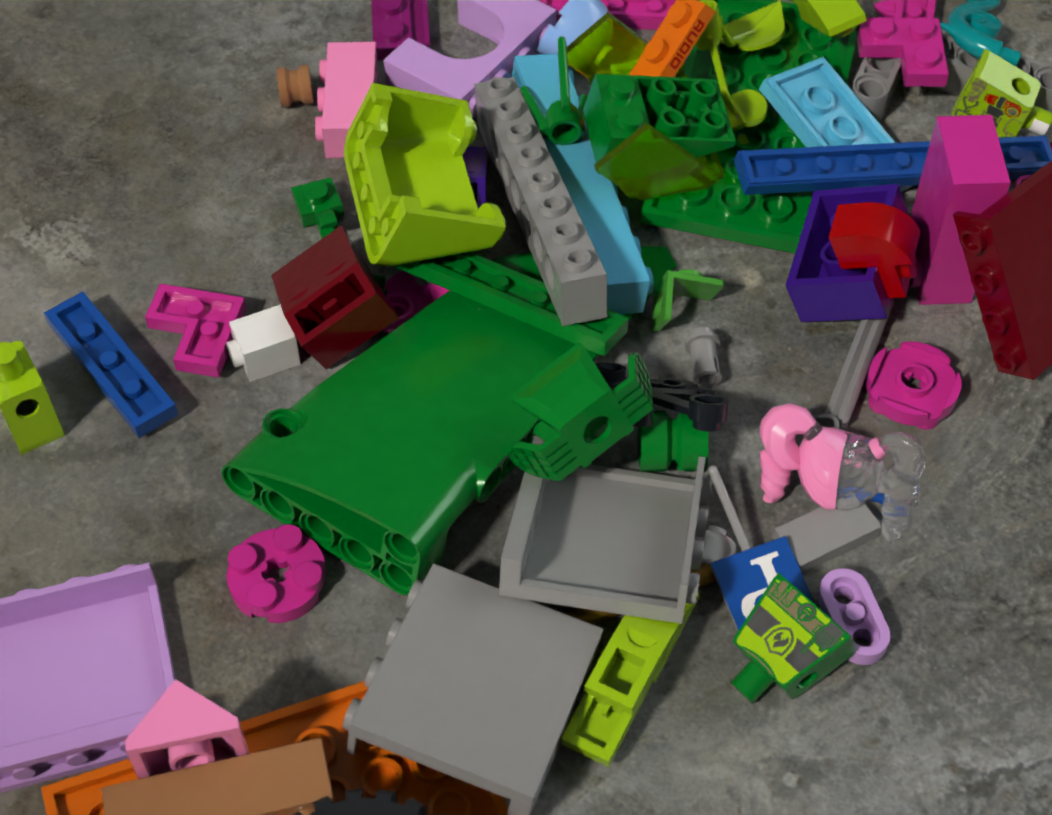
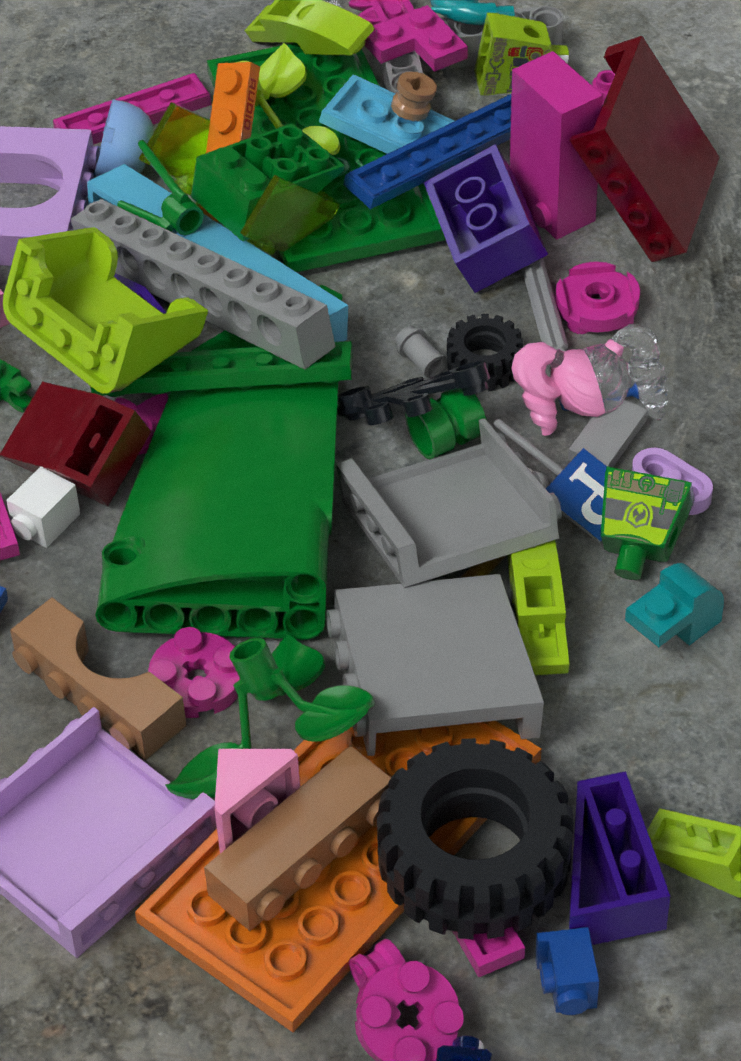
camera: 30 degrees left, 5 degrees down
(193, 580) = (135, 710): none -> medium nougat arch
(287, 616) = (270, 675): none -> green plant
(578, 412) = (371, 419): green piece -> none
(682, 283) = (363, 304): bright green bracket -> none
(757, 757) = (678, 606): none -> teal brick
(765, 366) = (485, 334): none -> black tyre
(863, 101) = (413, 96): none -> medium nougat wheel
(877, 237) = (514, 188): red brick -> none

